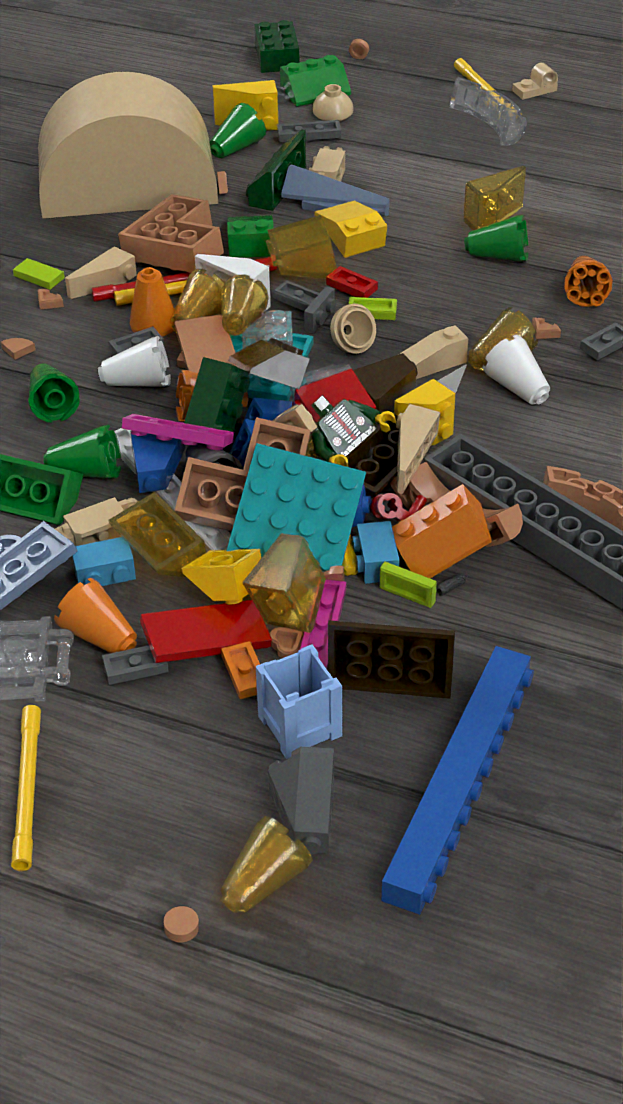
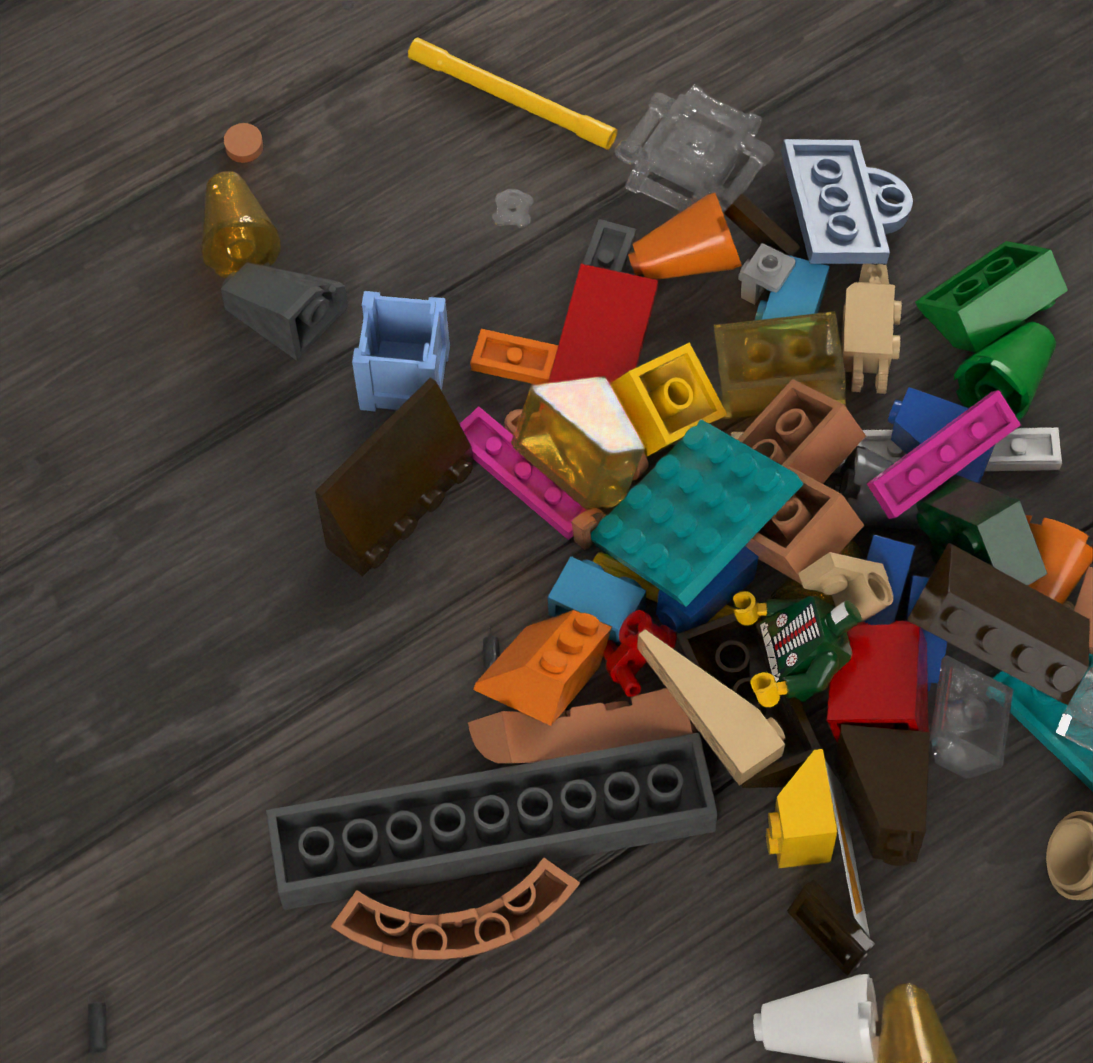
camera: 125 degrees right, 20 degrees up
(61, 587) = (759, 226): none -> dark brown tile
(96, 568) = (764, 270): none -> light grey bracket
(127, 732) = (512, 199): none -> clear plate
(408, 584) = (514, 599): lime tile -> none
(439, 351) = (961, 923): tan slope -> none
(456, 782) = (211, 475): blue brick -> none
(469, 394) = (830, 927): none -> dark brown tile

